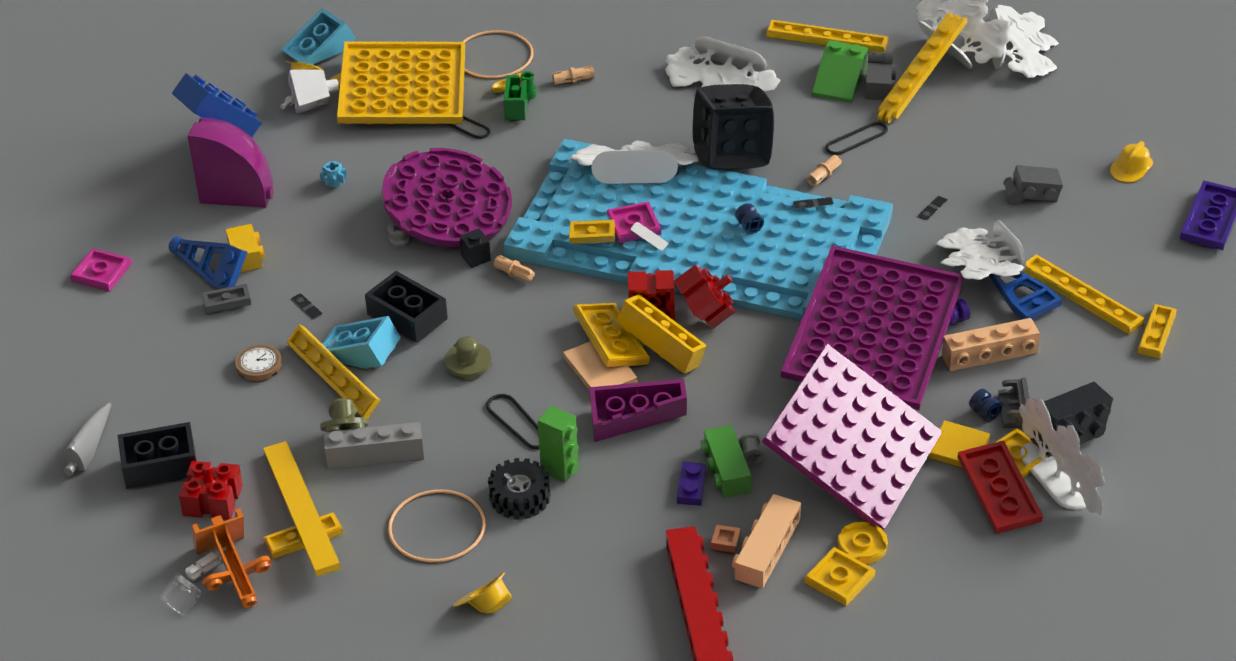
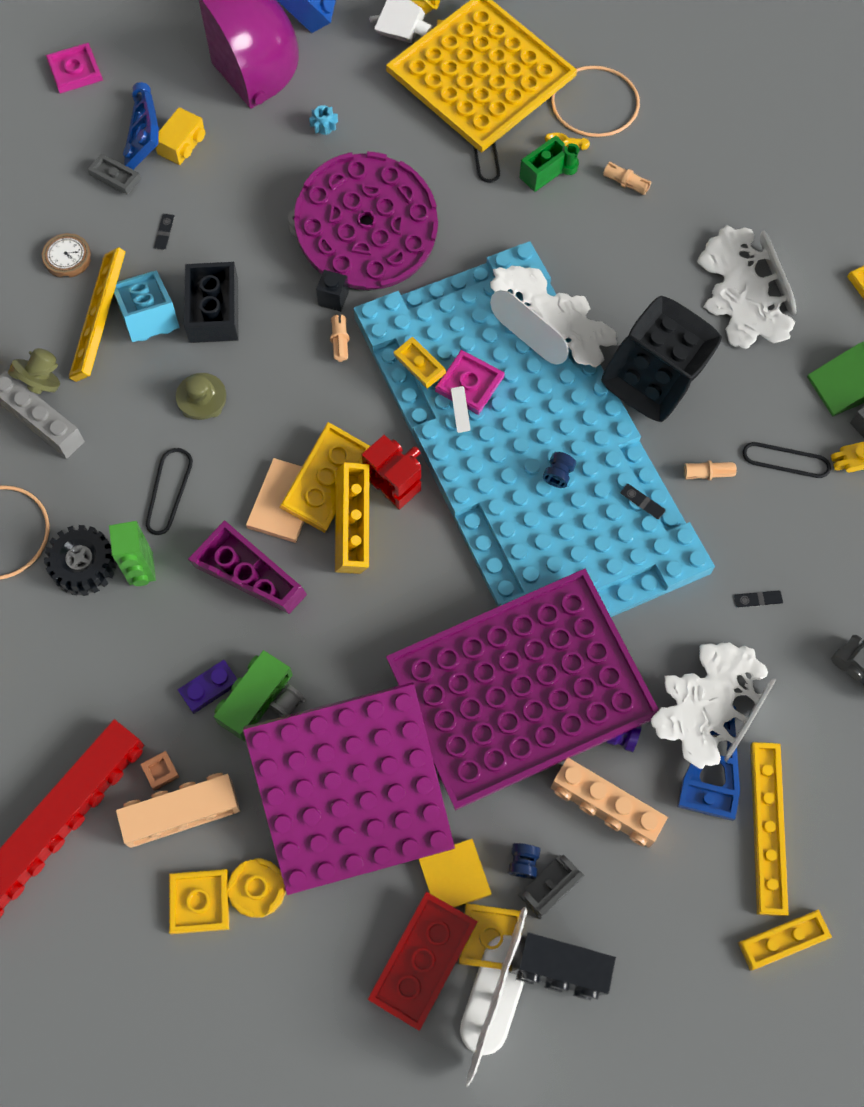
camera: 45 degrees right, 25 degrees up
(706, 295) = (425, 515): red brick -> none

